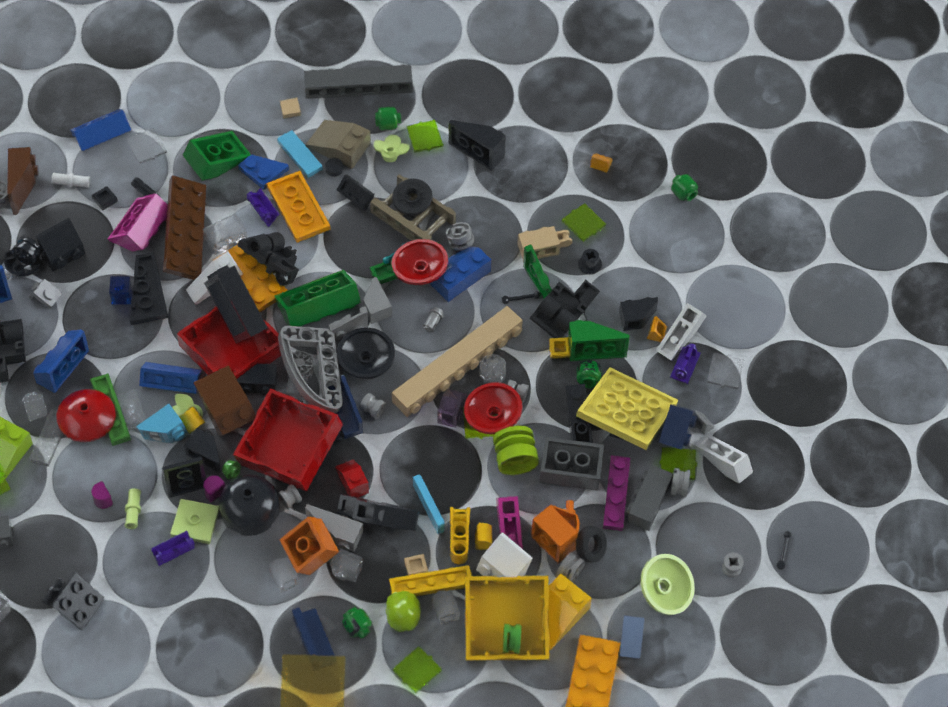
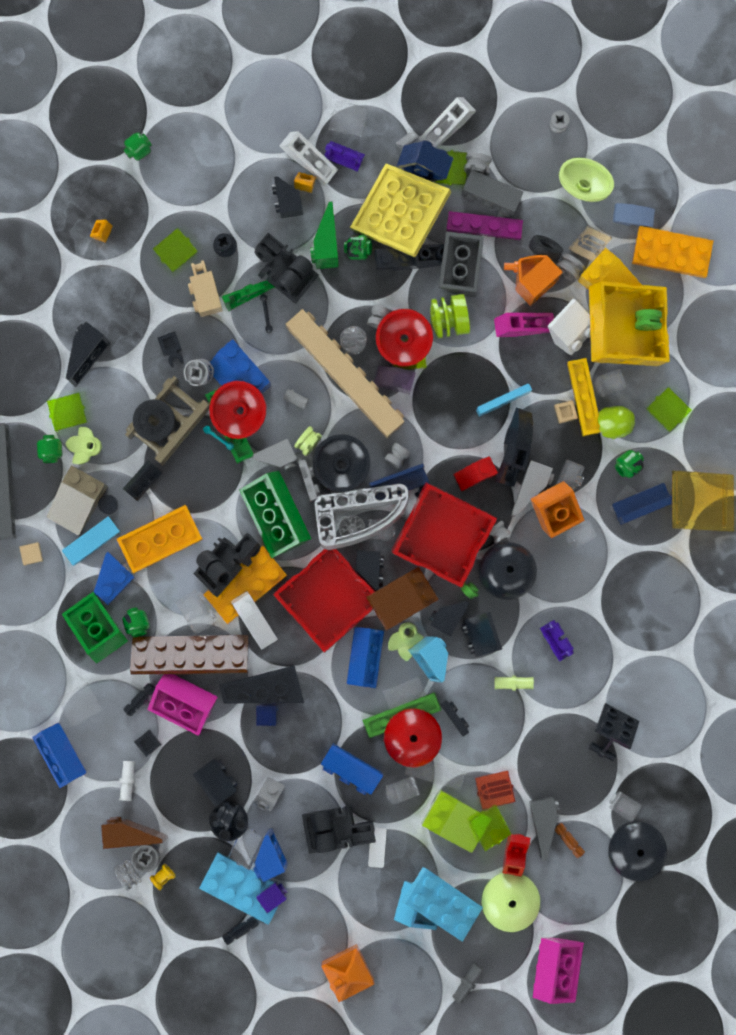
camera: 90 degrees left, 25 degrees up
(26, 492) = (495, 789): none -> clear red piece
(101, 496) = (502, 714): magenta brick -> none
(102, 452) = (461, 724): none -> black plate
(192, 419) = (420, 631): yellow brick -> none
(197, 519) = (523, 622): yellowish green plate -> none
(213, 487) = (492, 605): magenta brick -> none
(219, 185) = (136, 622): none -> green head
(234, 303) = (308, 589): black window -> none
(263, 206) = (161, 574): dark purple hinge -> none
(389, 325) = (308, 441): none -> yellowish green wheel
(459, 523) = (523, 370): yellow piece -> none
(483, 536) = (536, 349): yellow brick -> none
(486, 215) = (170, 346): none -> black plate
(559, 347) = (329, 275): yellow brick -> none
(598, 588) = (590, 243): none -> clear piece
(781, 564) = (554, 80): black hinge -> none

